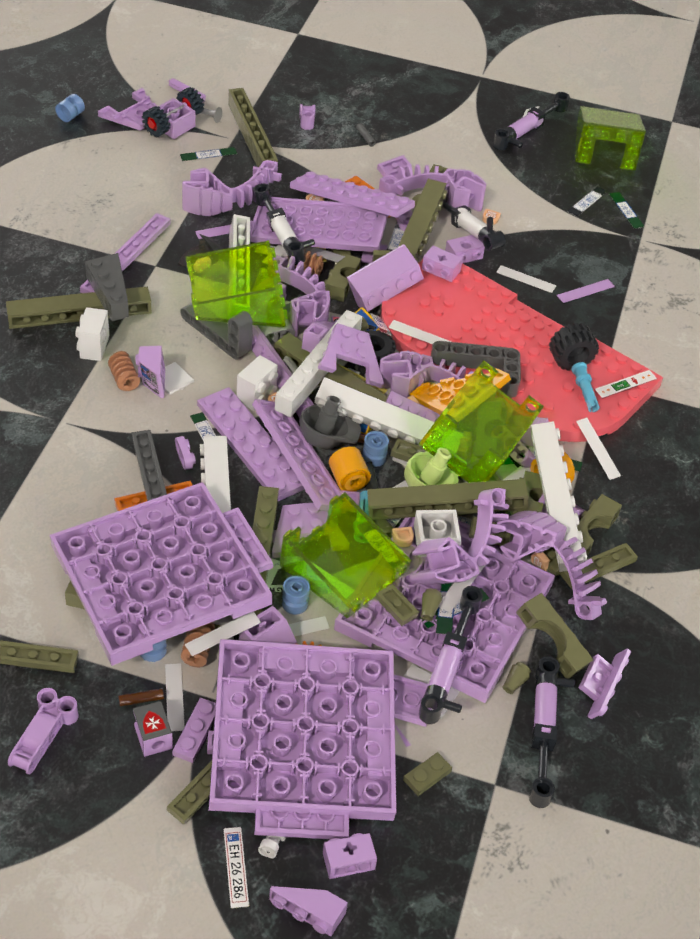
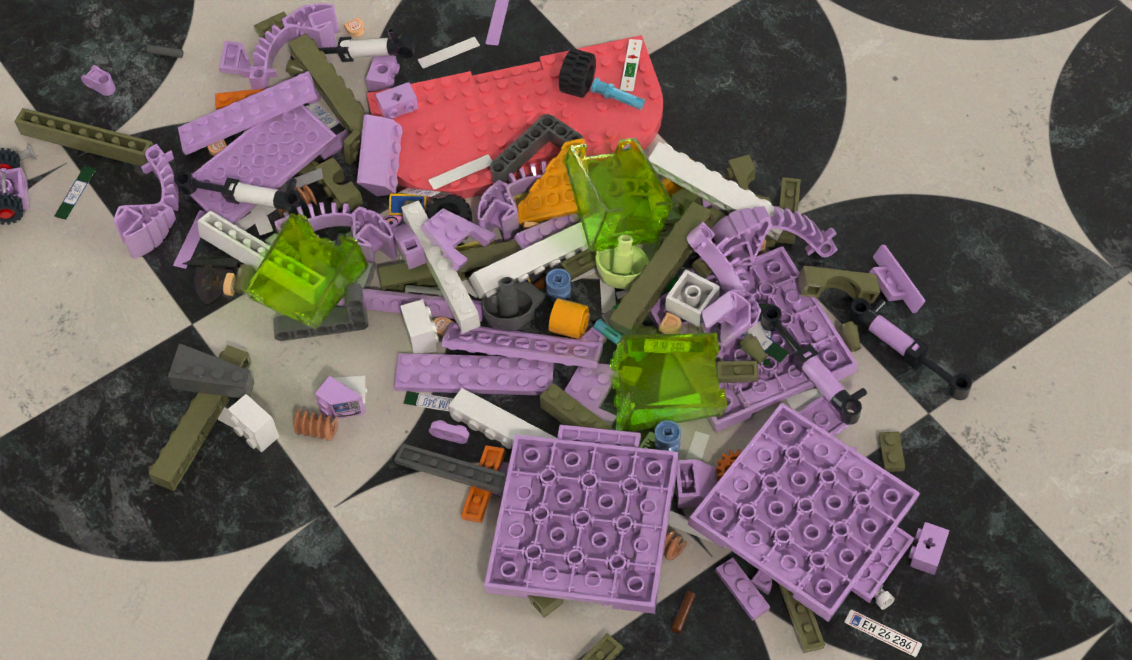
camera: 45 degrees left, 10 degrees up
(137, 244) = (158, 332): lavender plate -> none
(152, 728) = (725, 619): piece -> none
(174, 696) = (697, 587): white sticker -> none
(223, 632) = (677, 515): white sticker -> none
(314, 906) = (960, 596): lavender slope -> none
(598, 448) = (677, 130): white sticker -> none

